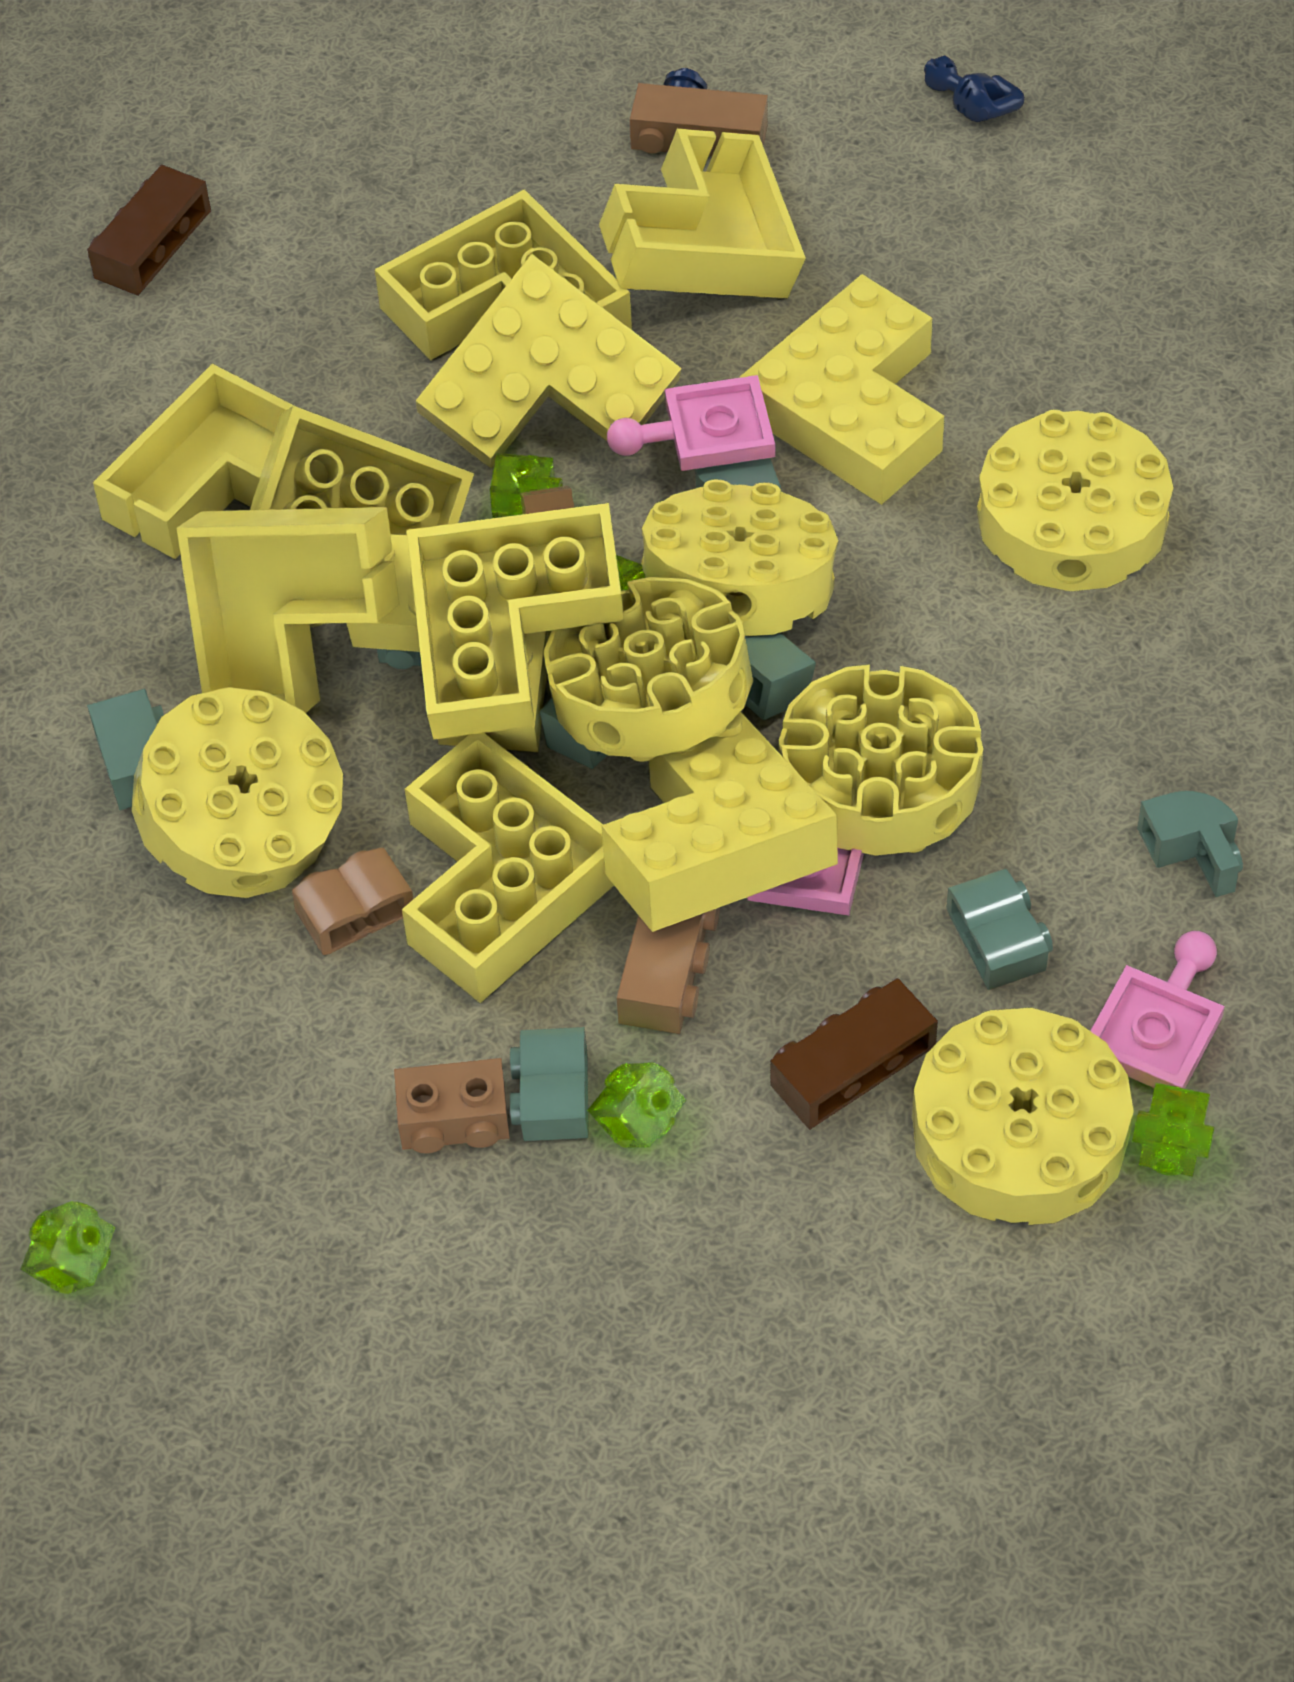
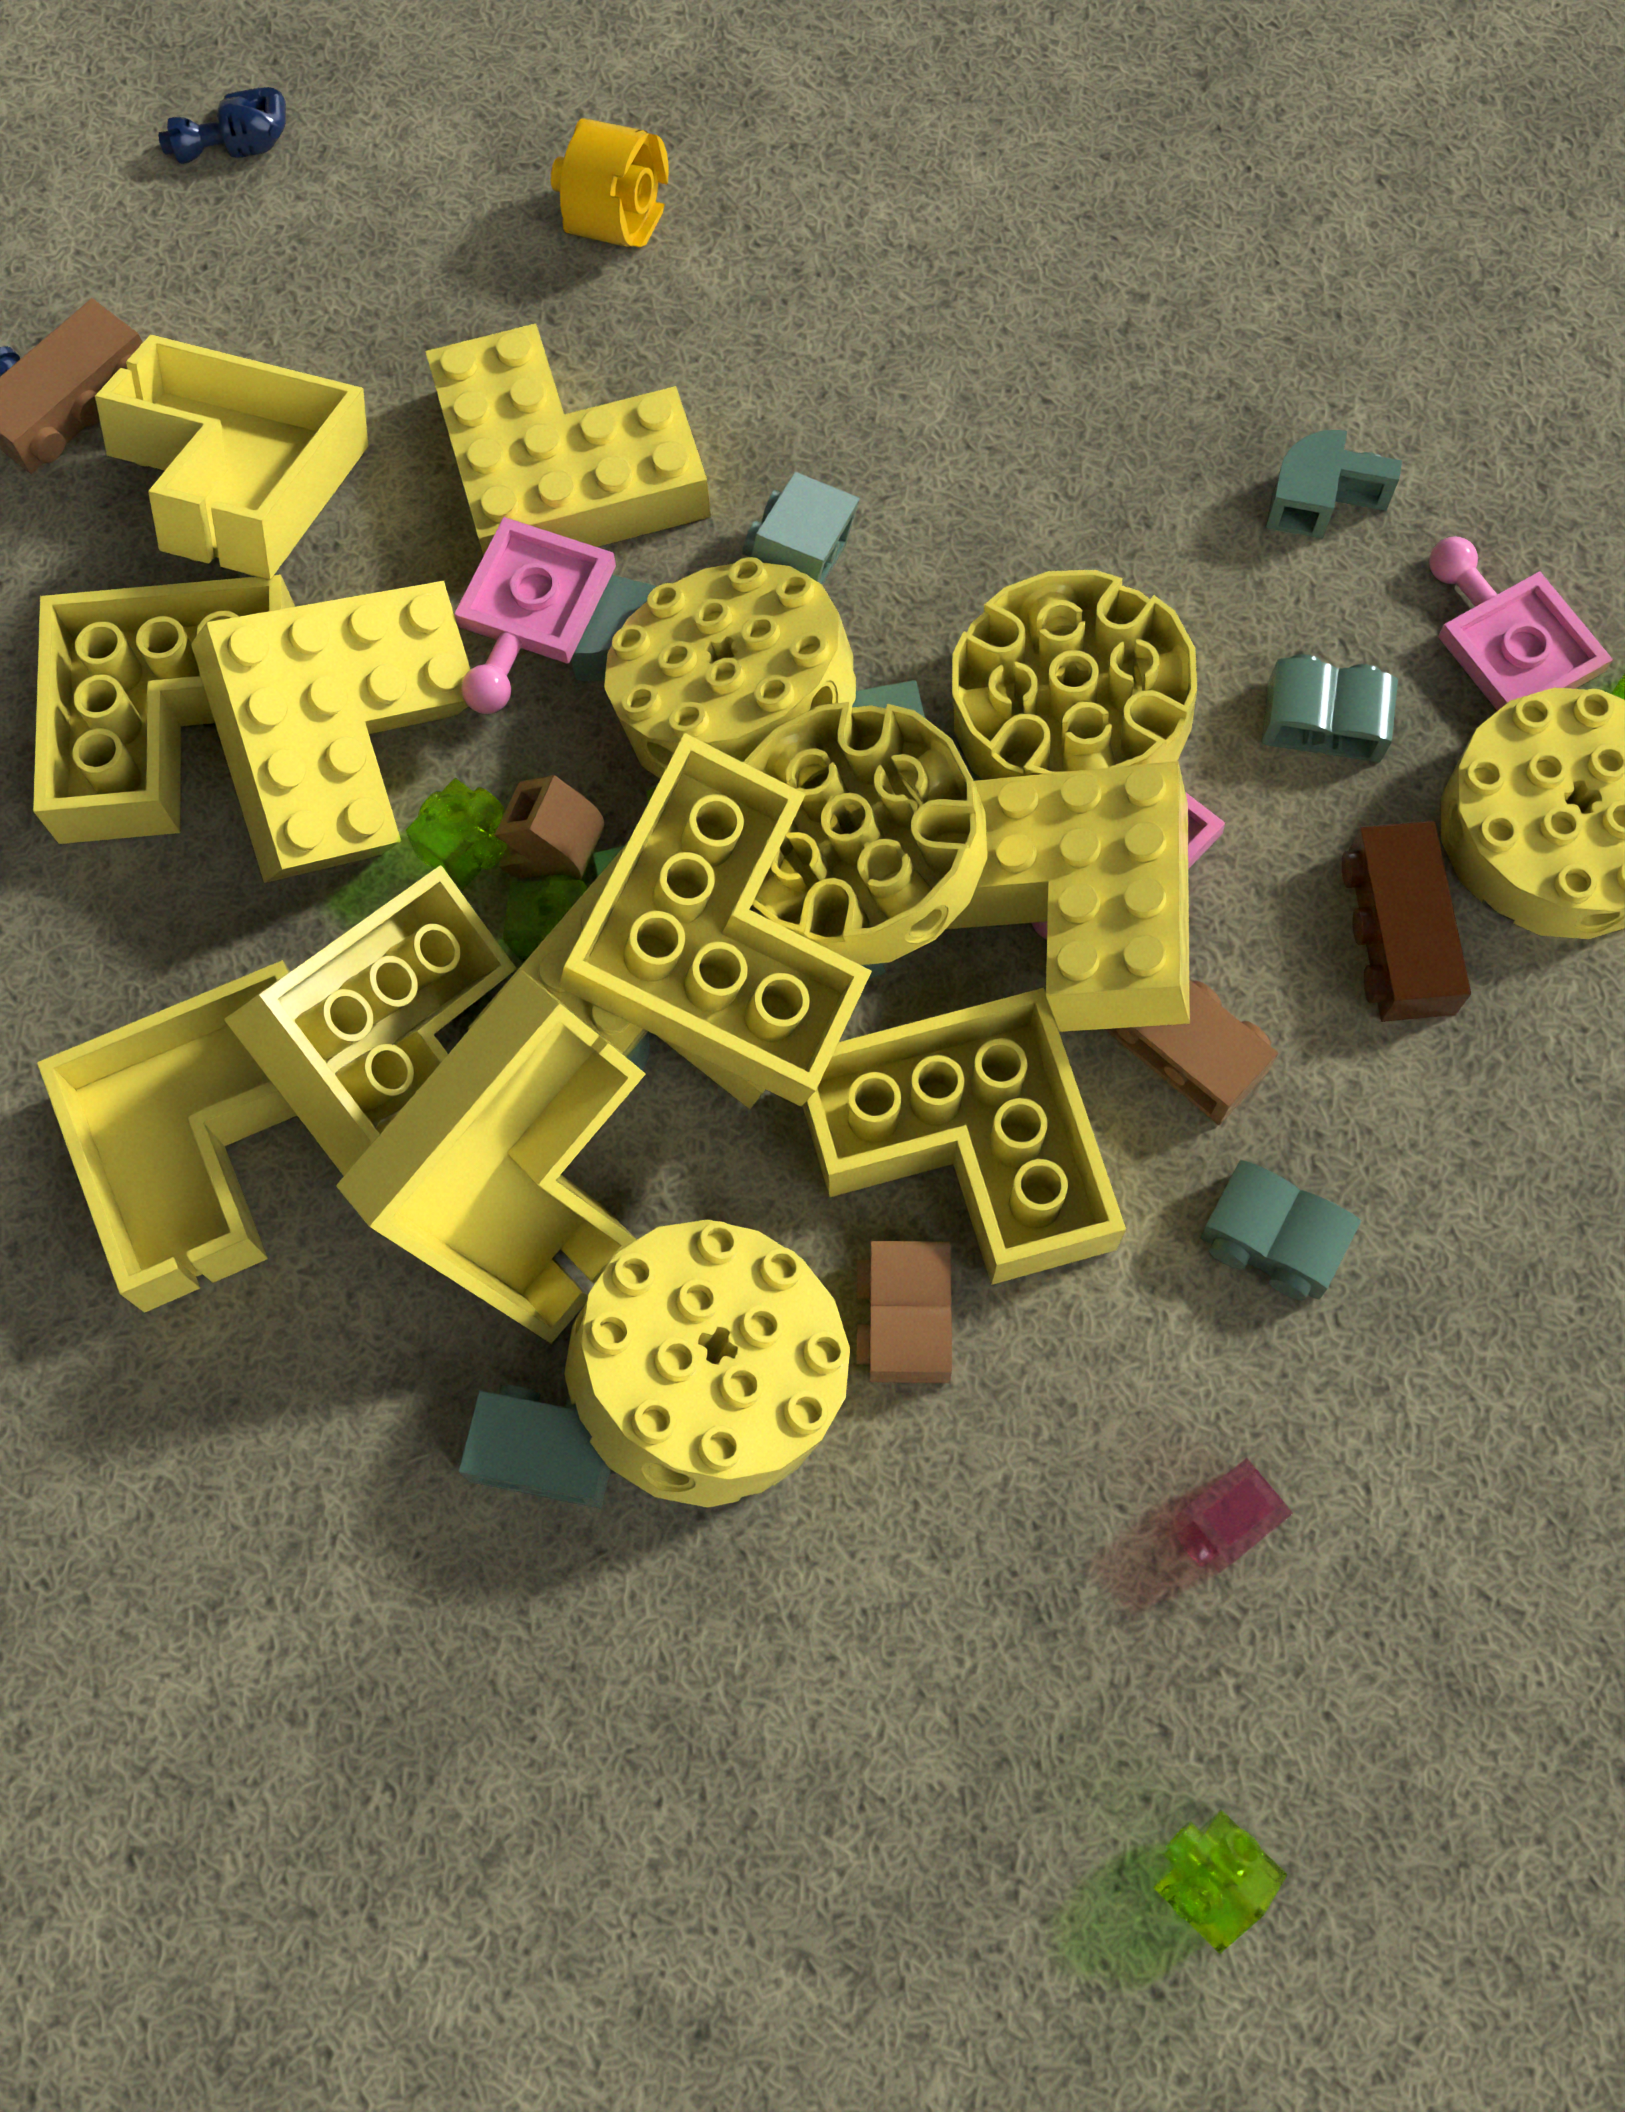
camera: 60 degrees left, 15 degrees up
(323, 1148) = (1230, 1517): none -> clear pink brick
(451, 1105) = (1252, 1349): medium nougat brick -> none
(637, 1104) = (1363, 1158): clear neon green brick -> none
(885, 549) = (803, 527): none -> brick
(1074, 500) = (848, 344): light yellow brick -> none
(1089, 301) = (611, 183): none -> yellow brick

